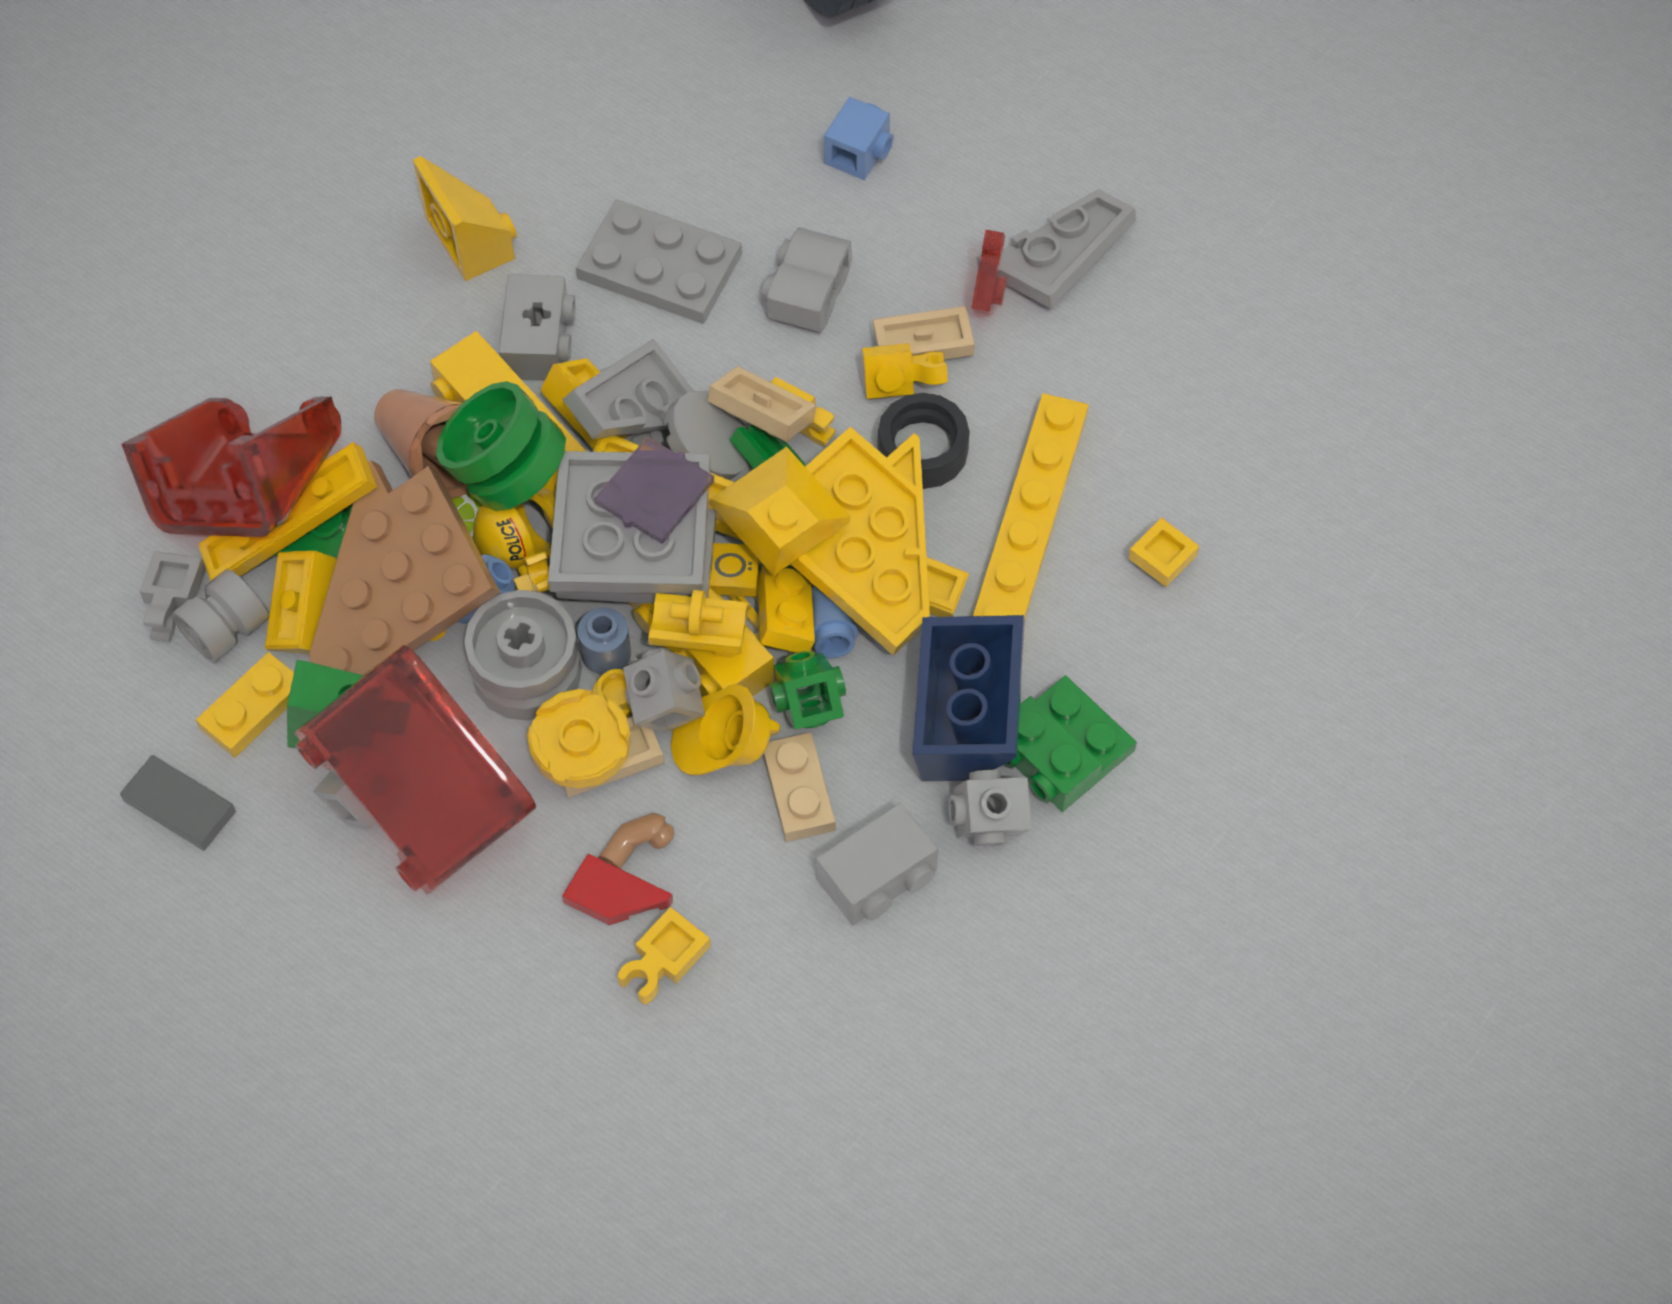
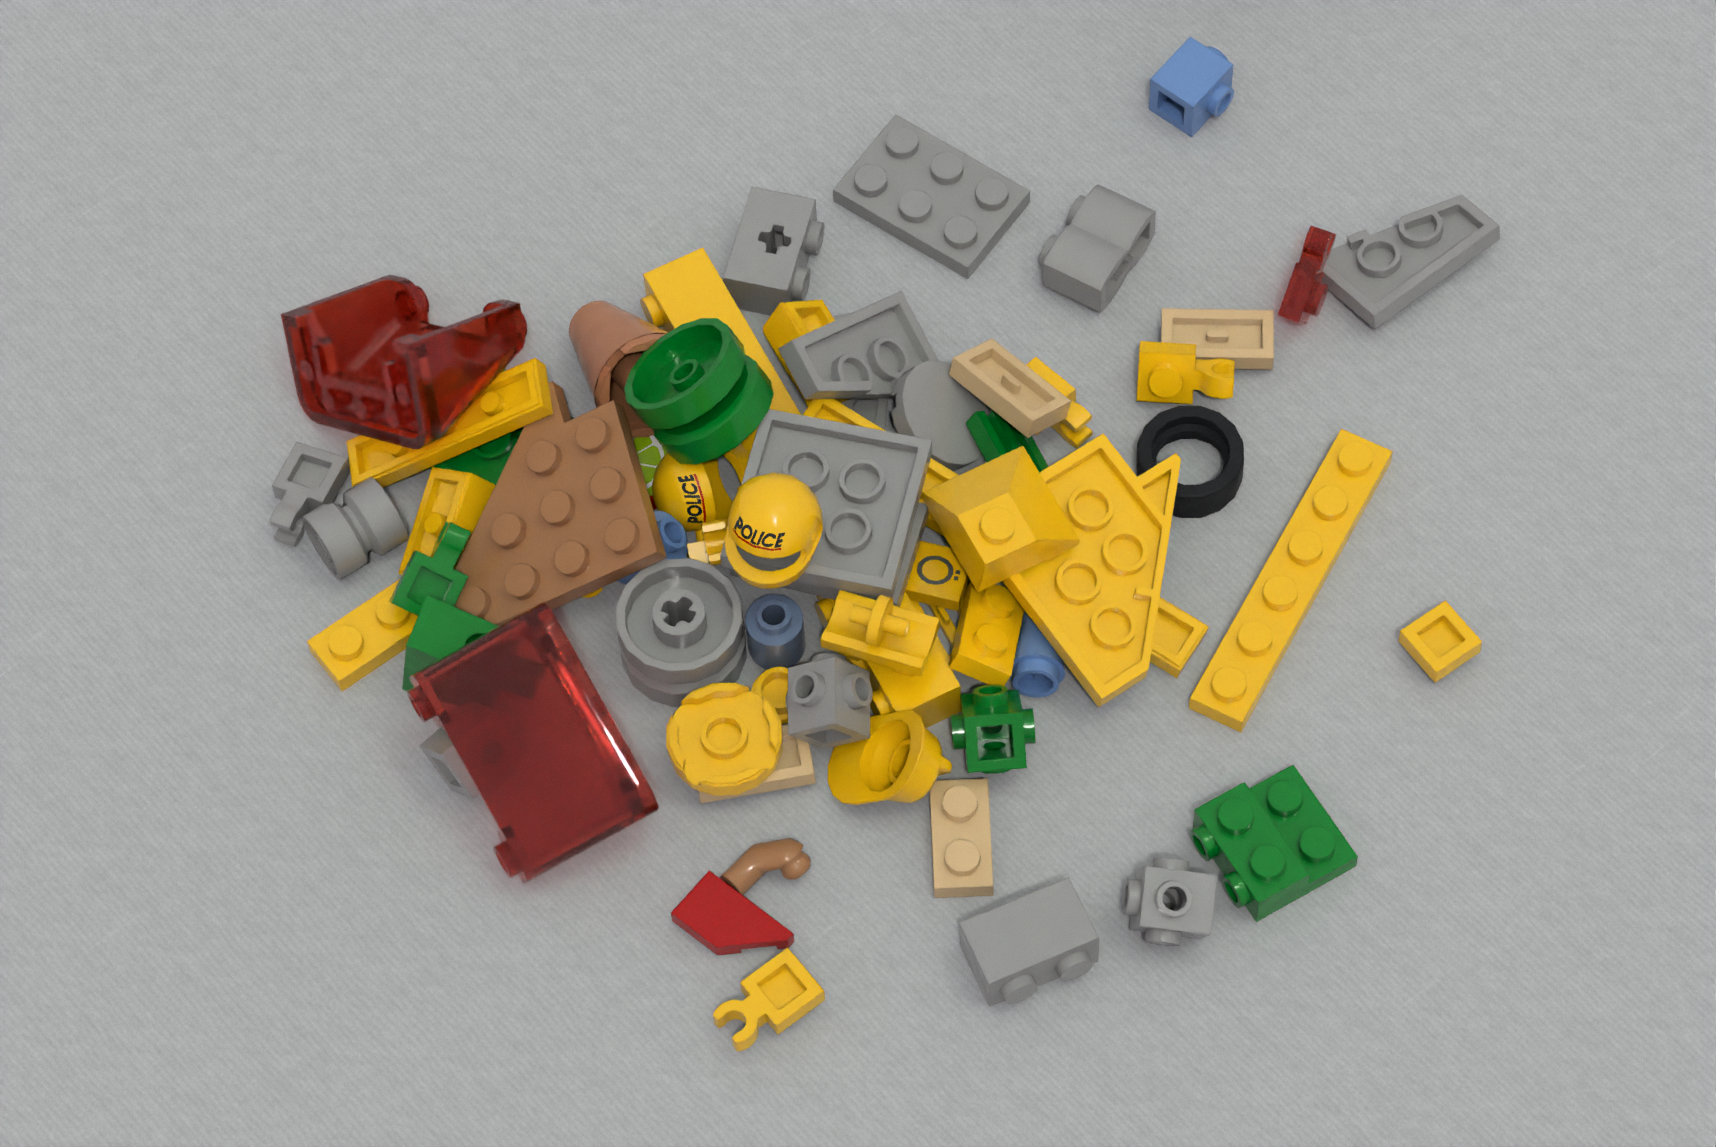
camera: 15 degrees right, 0 degrees up
(178, 802) = (271, 730): dark grey tile -> none
(296, 641) = (433, 574): none -> green plate
(464, 221) = (716, 114): yellow slope -> none
(591, 540) = (773, 519): none -> yellow helmet
(654, 490) = (861, 471): clear purple piece -> none
(967, 695) = (1170, 768): dark blue slope -> none

